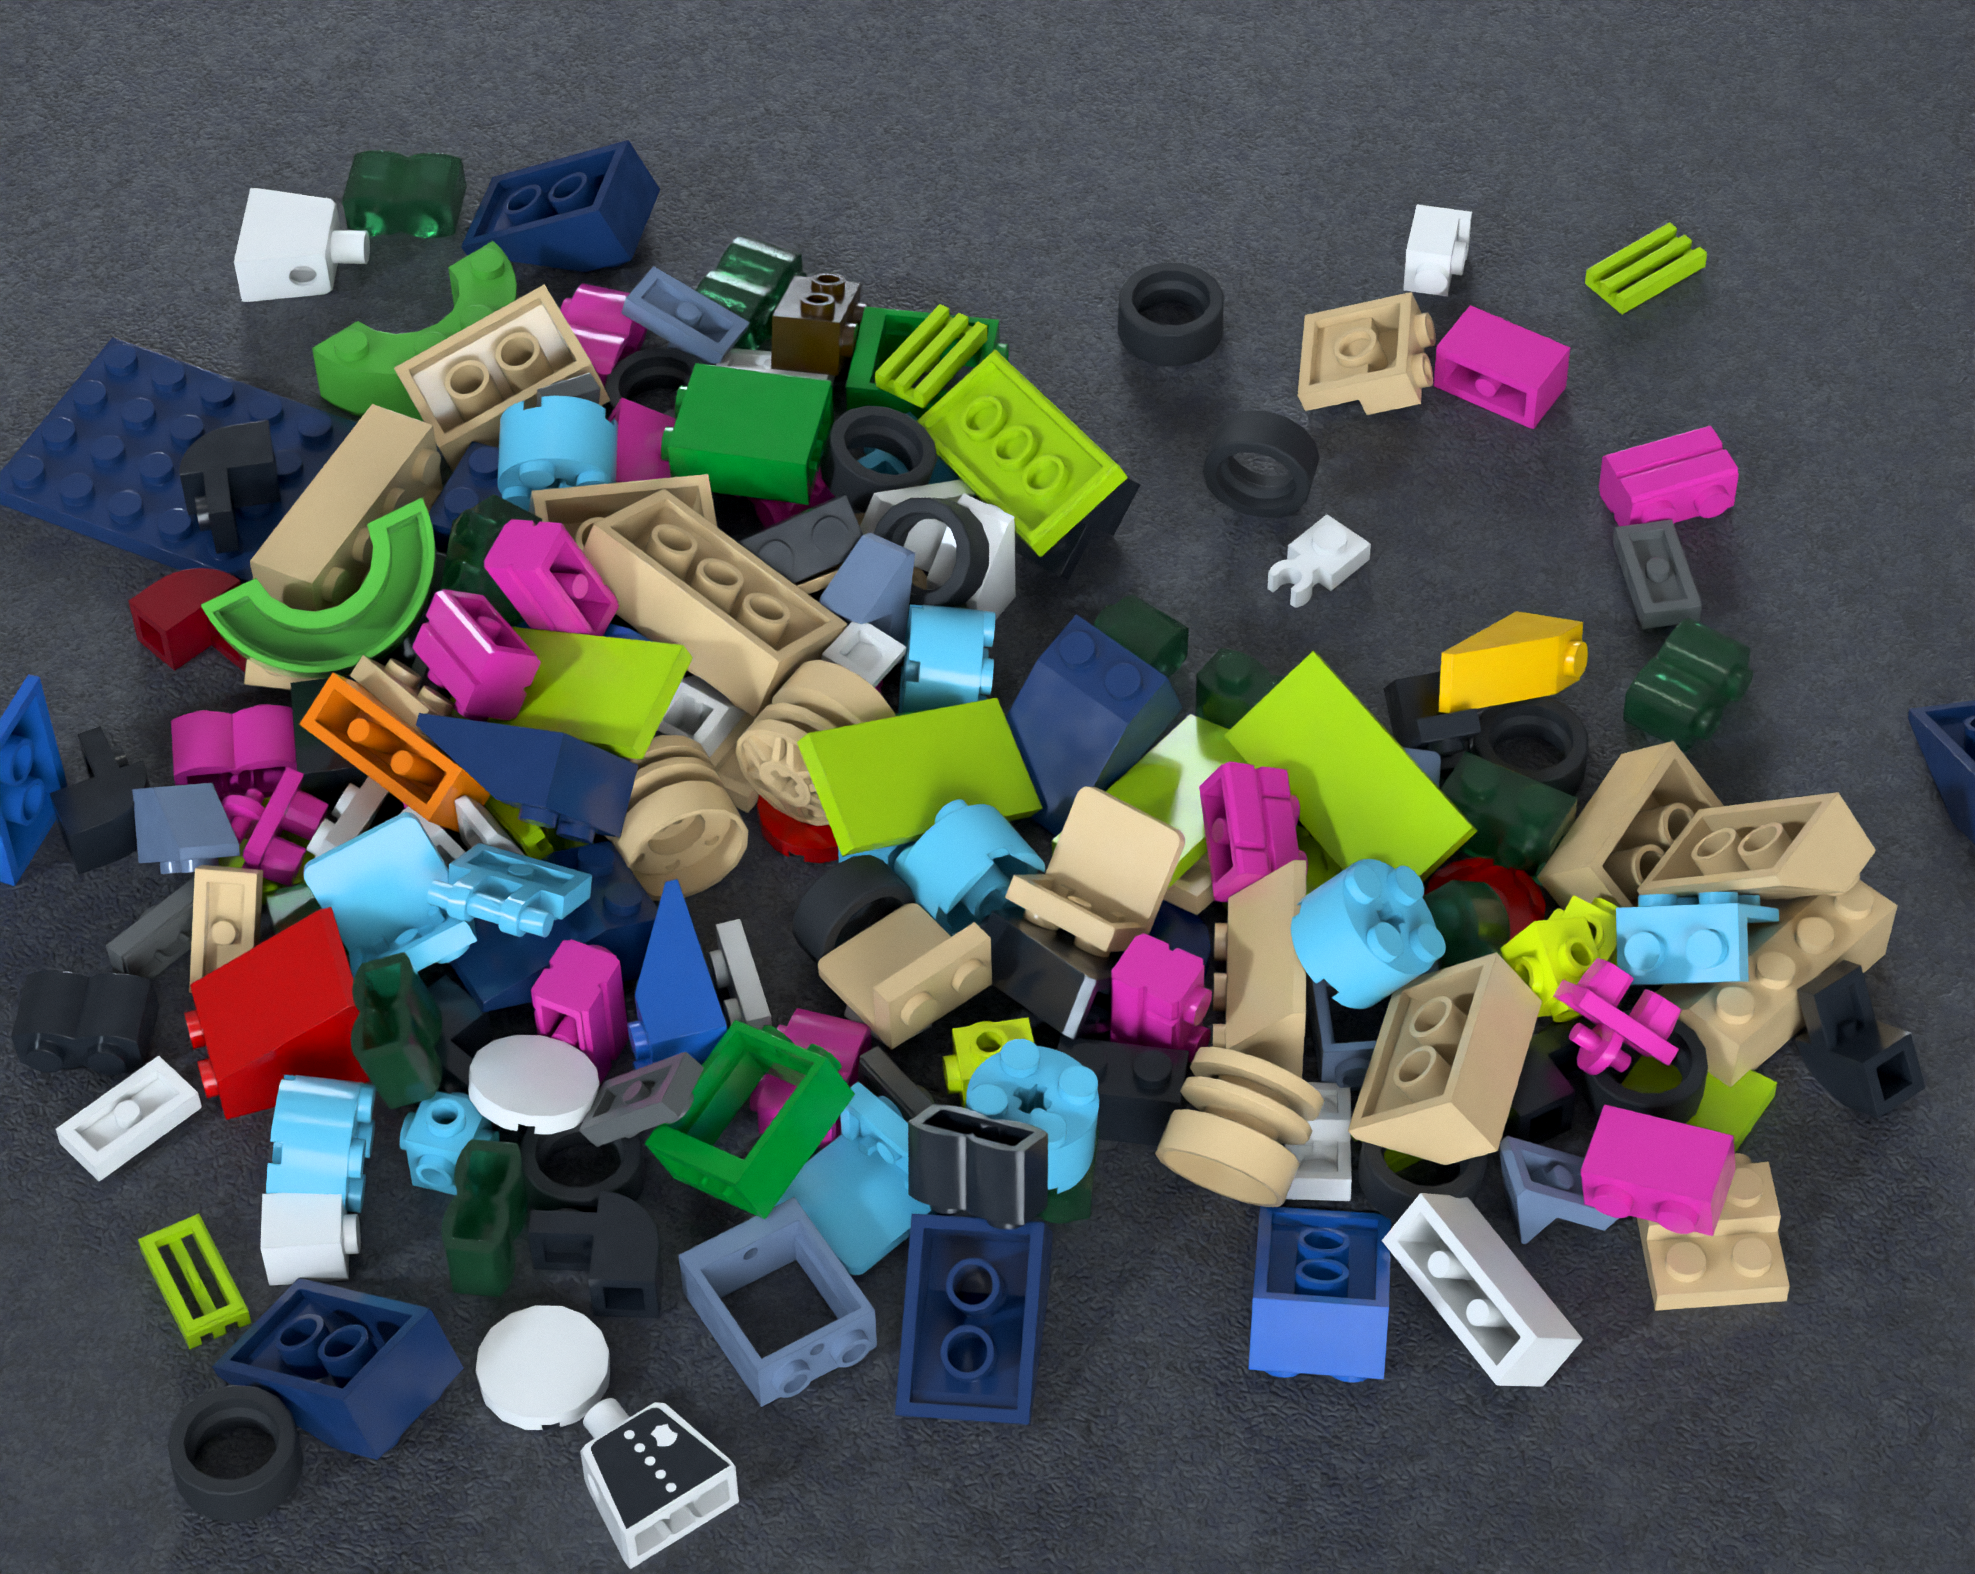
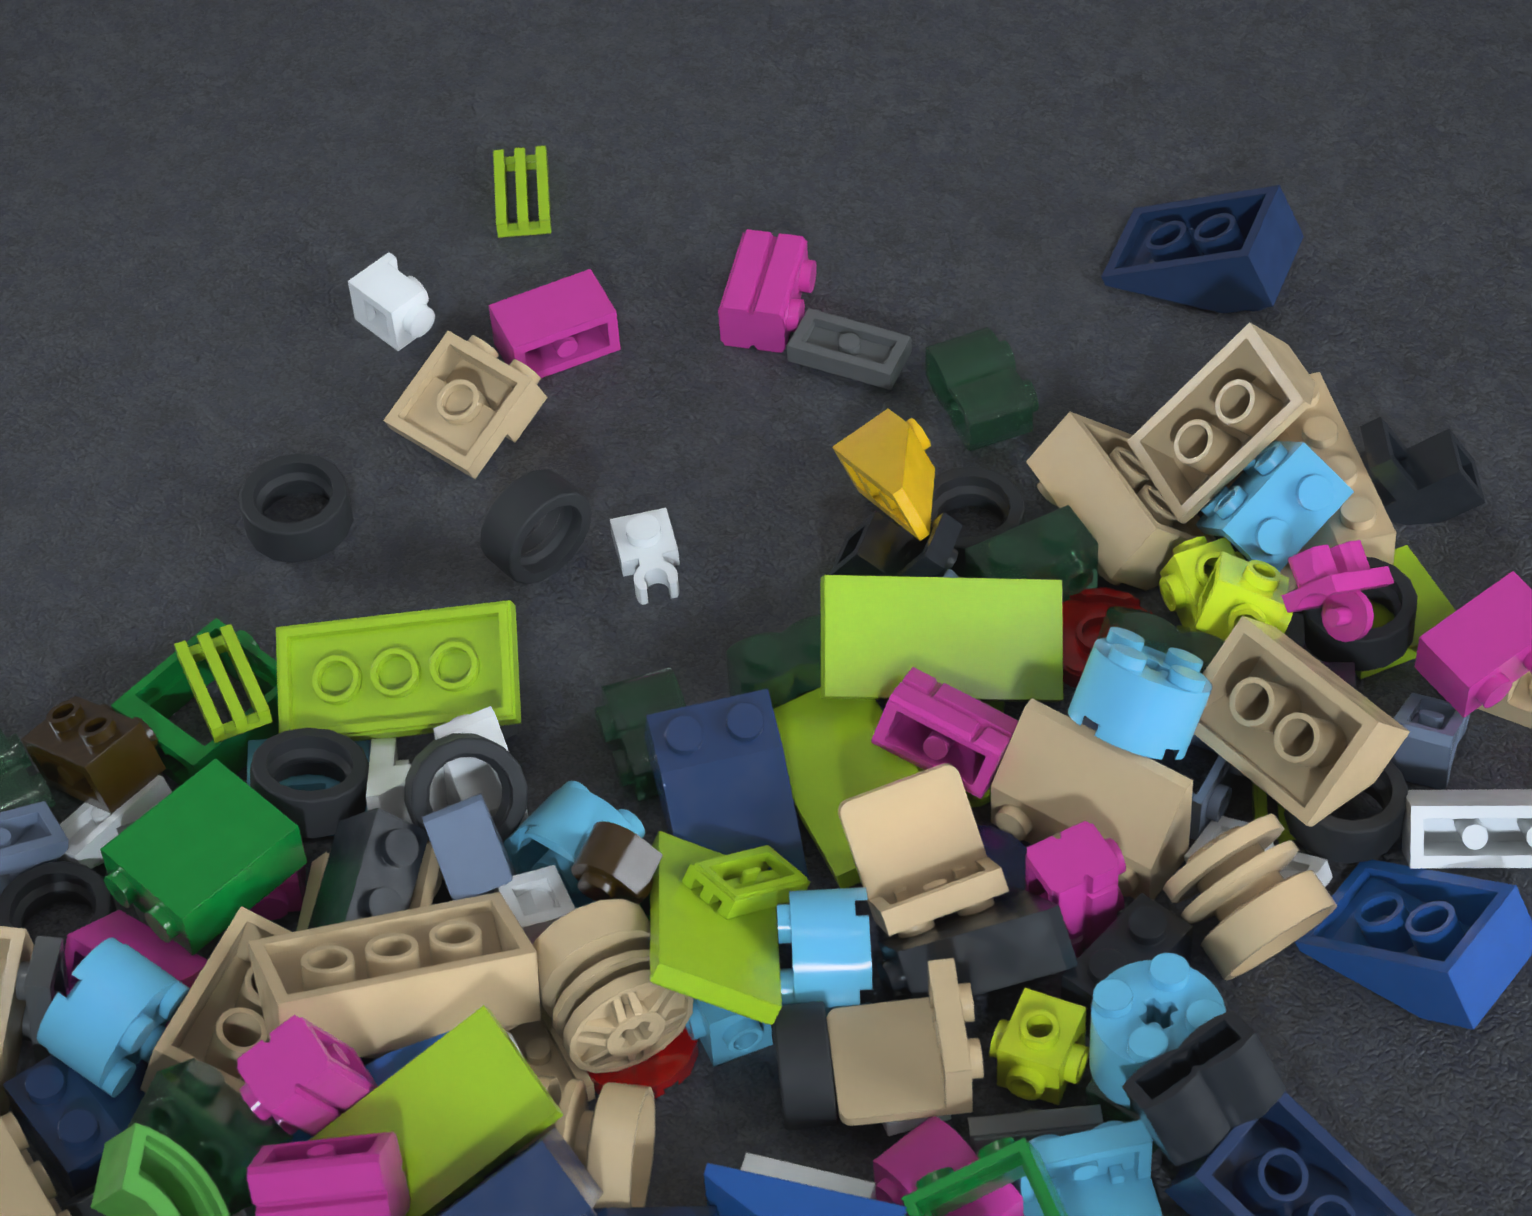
camera: 55 degrees left, 0 degrees up
(917, 675) = (615, 864): none -> dark brown plate
(991, 785) = (753, 889): none -> lime tile

